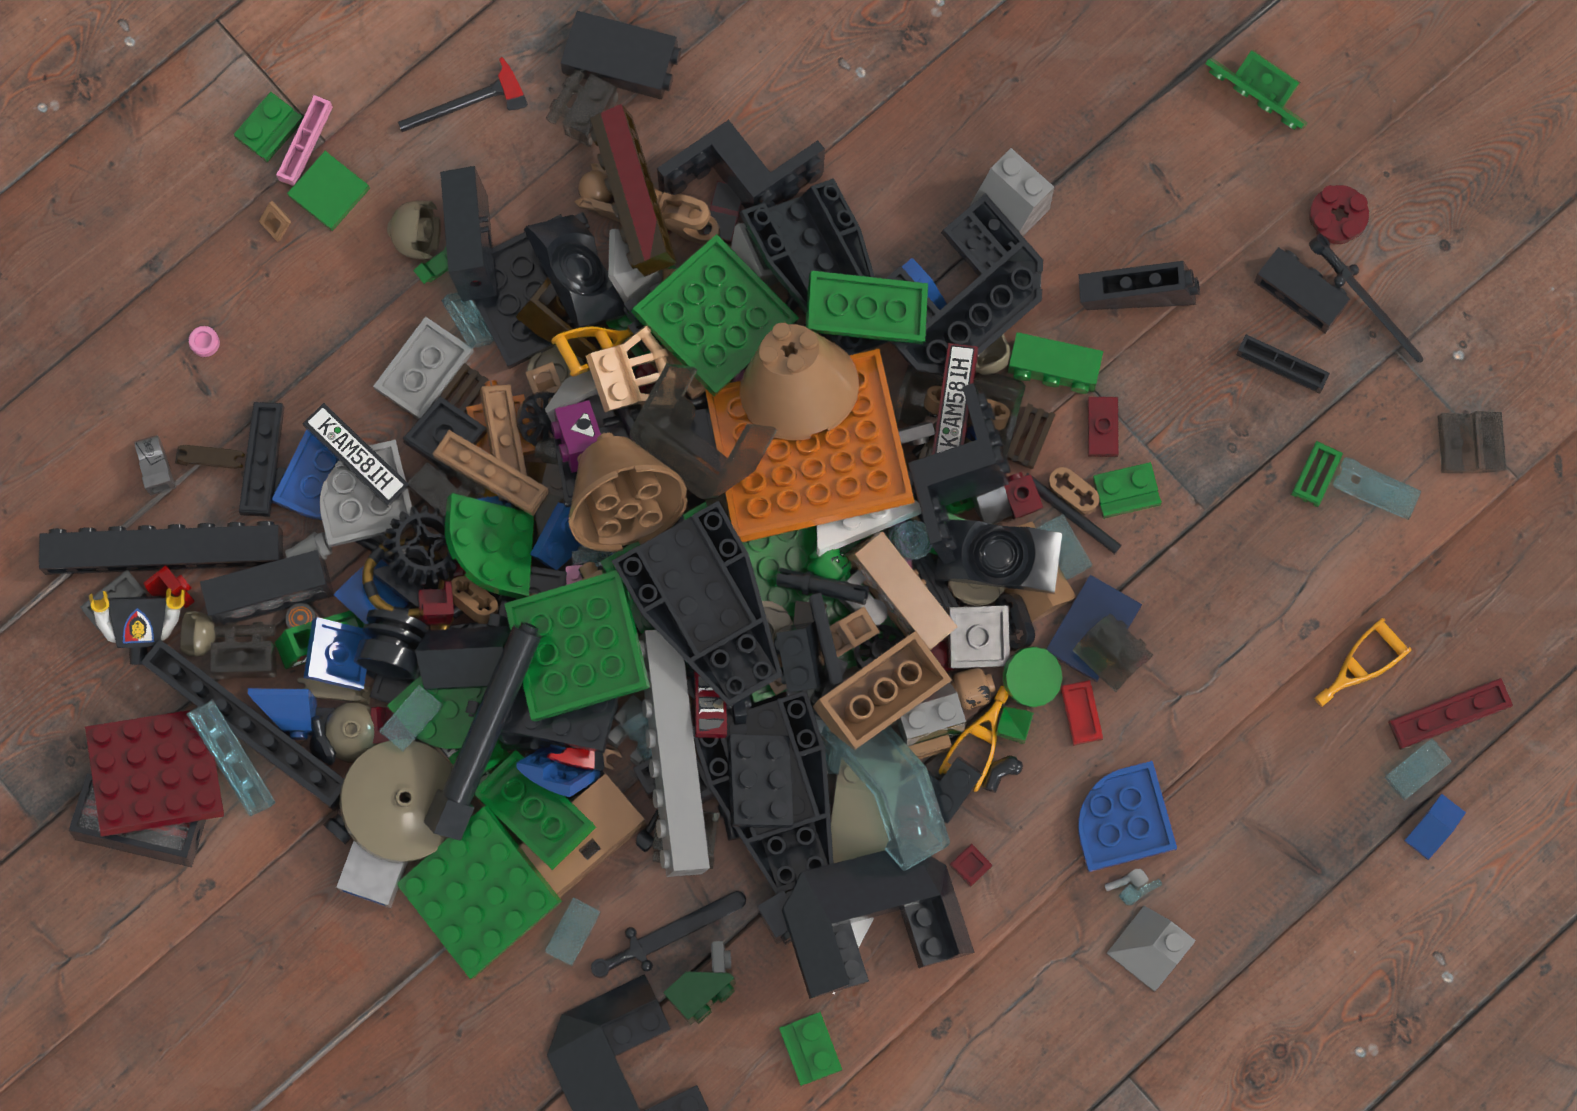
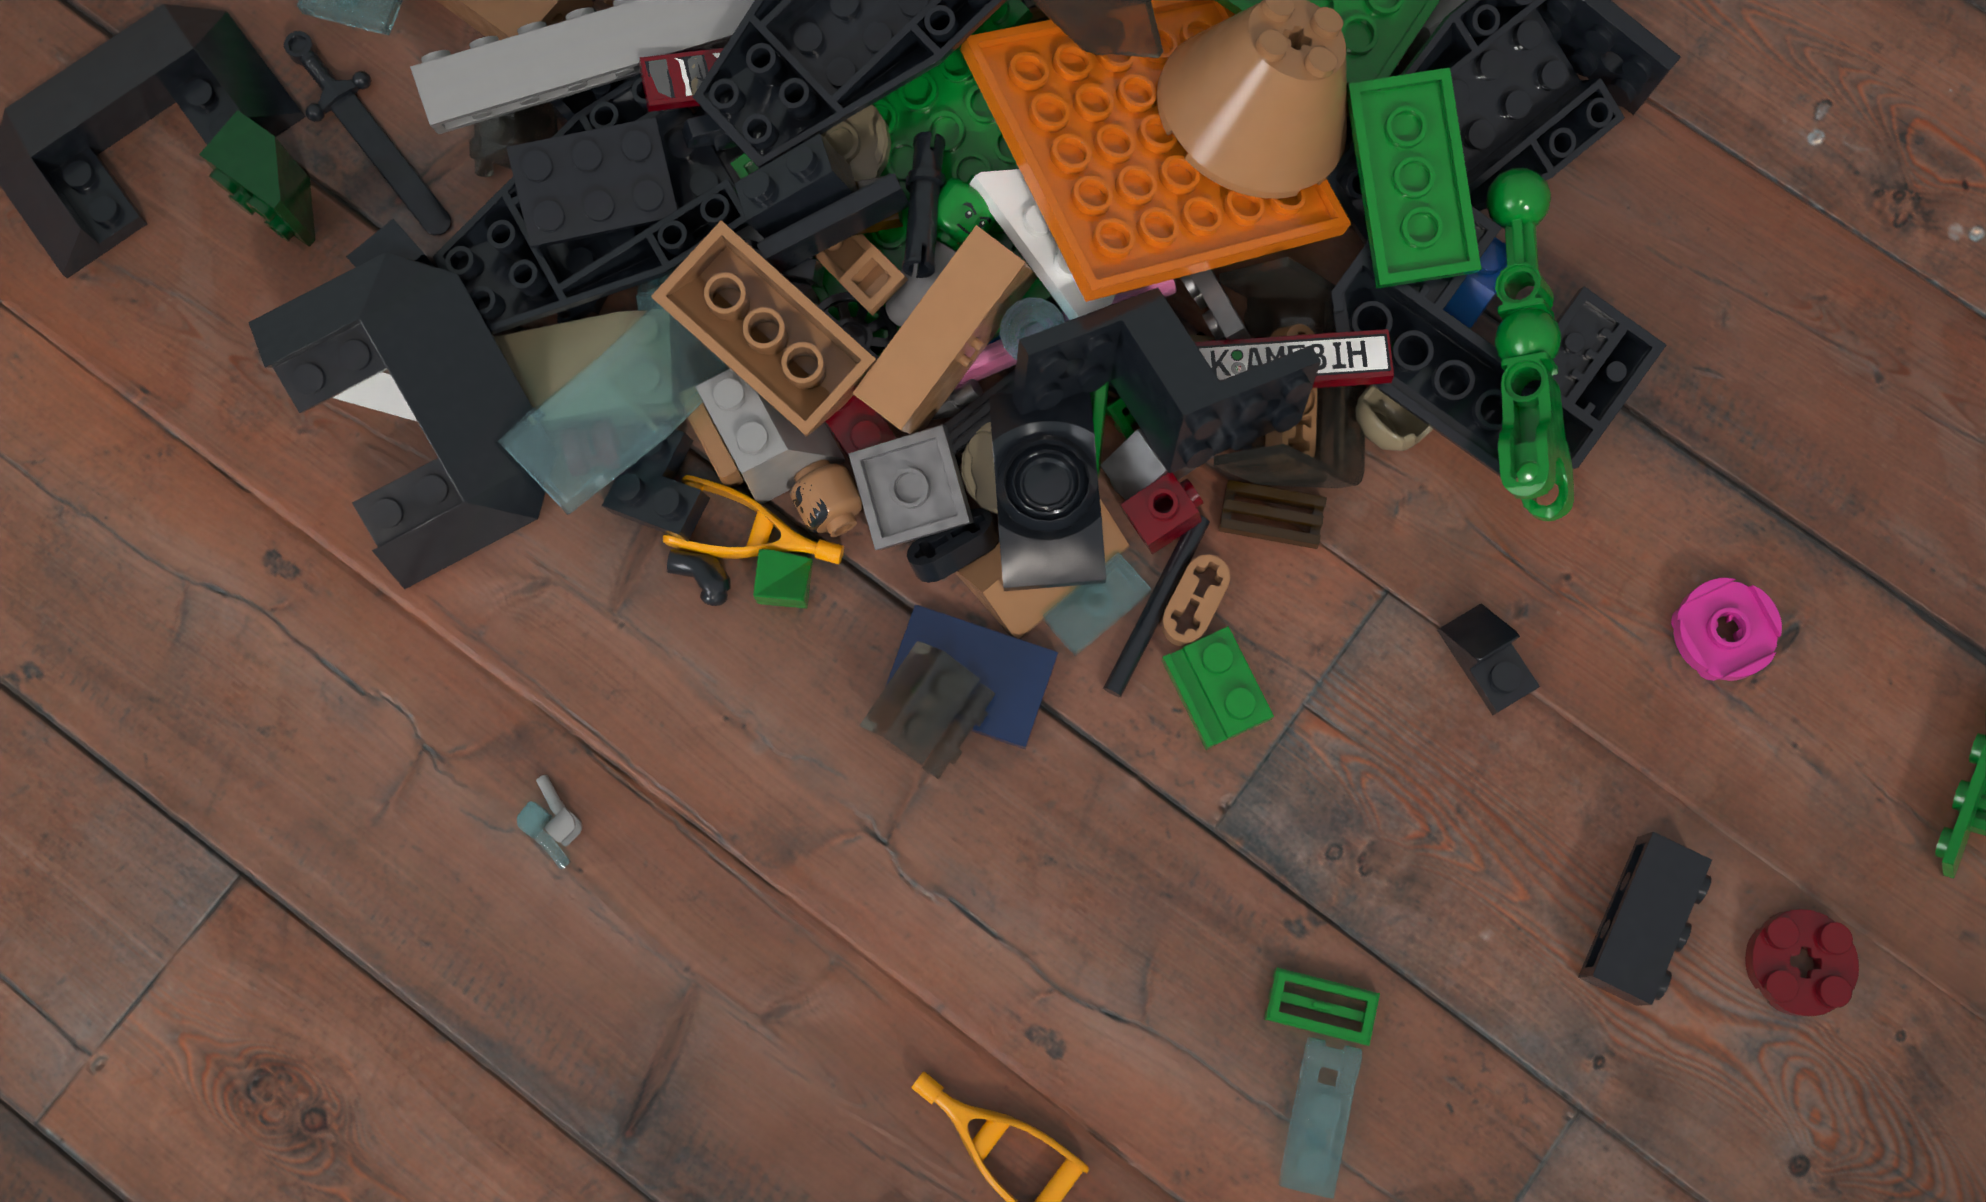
camera: 80 degrees right, 0 degrees up
(720, 957) = (320, 197): dark grey plate -> none
(810, 1049) = (216, 372): green plate -> none
(970, 865) = (543, 557): dark red tile -> none
(973, 269) = (1527, 343): none -> green piece
(1017, 191) = (1682, 398): light grey slope -> none
(1032, 676) = (864, 590): green tile -> none
(1055, 363) = (1405, 526): green brick -> none
(1081, 712) = (824, 684): red tile -> none
(1103, 427) = (1317, 628): dark red plate -> none
(1124, 819) = (656, 786): blue plate -> none
(1138, 336) = (1488, 658): none -> black slope
(1139, 287) = (1574, 639): black slope -> none
(1141, 218) = (1709, 653): none -> dark pink plate
(1151, 947) = (452, 870): light grey slope -> none
(1283, 364) = (1502, 910): black piece -> none
(1321, 246) = (1734, 936): black sword -> none

